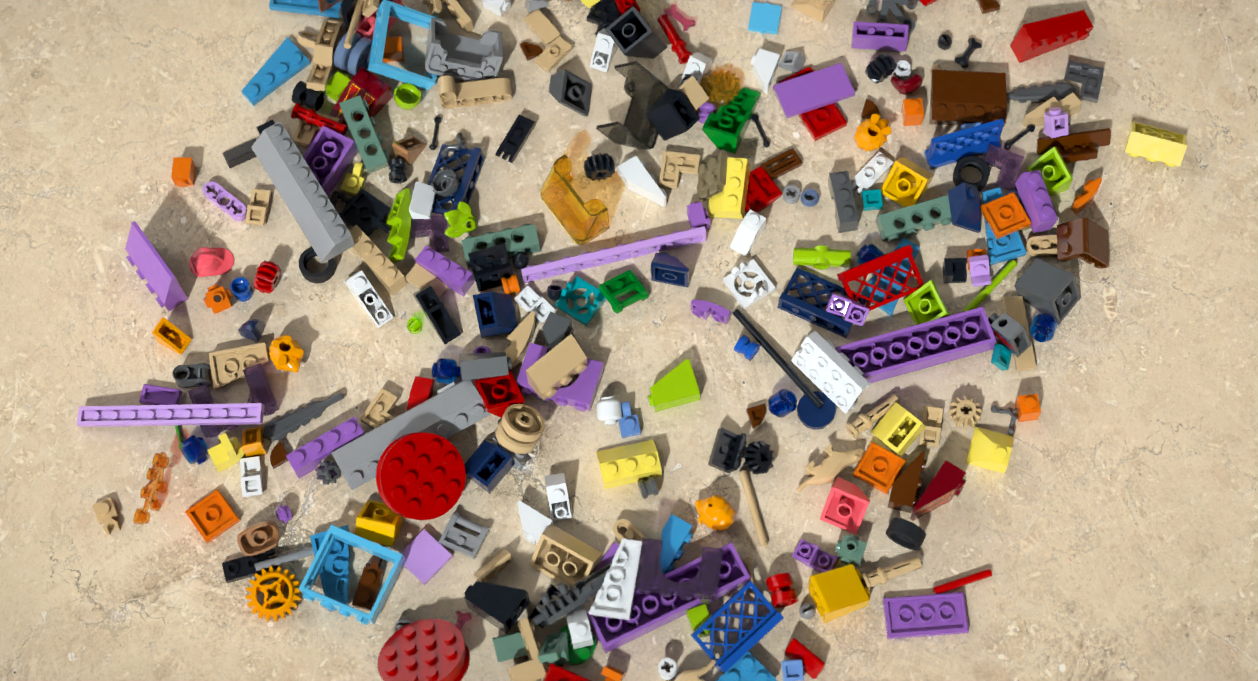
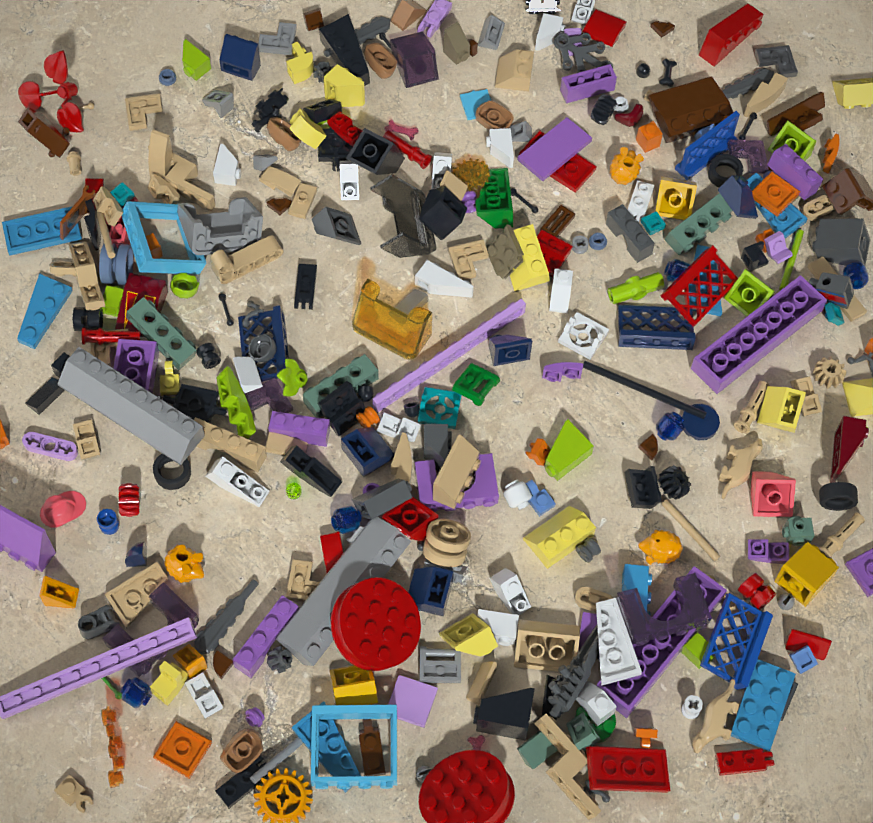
camera: 30 degrees left, 5 degrees down
(159, 395) = (72, 655): medium lavender tile -> none
(215, 305) = (96, 536): orange brick -> none
(408, 149) = (208, 332): medium nougat slope -> none
(501, 522) = (470, 636): none -> light yellow slope
(599, 167) = (398, 282): black gear -> none
(603, 192) = (413, 300): none -> light grey slope
(649, 377) = (539, 451): none -> orange tile
(697, 215) = (508, 292): medium lavender brick -> none
(747, 347) = (612, 390): blue wheel -> none
(771, 36) = (493, 116): none -> medium nougat piece
(830, 371) = (700, 381): white piece -> none
(847, 308) = (685, 322): medium lavender slope -> none
(869, 109) = (610, 149): reddish brown tile -> none
(879, 468) = (781, 450): orange tile -> none
(904, 489) = (815, 460): reddish brown slope -> none
(1055, 123) = (776, 101): lavender brick -> none

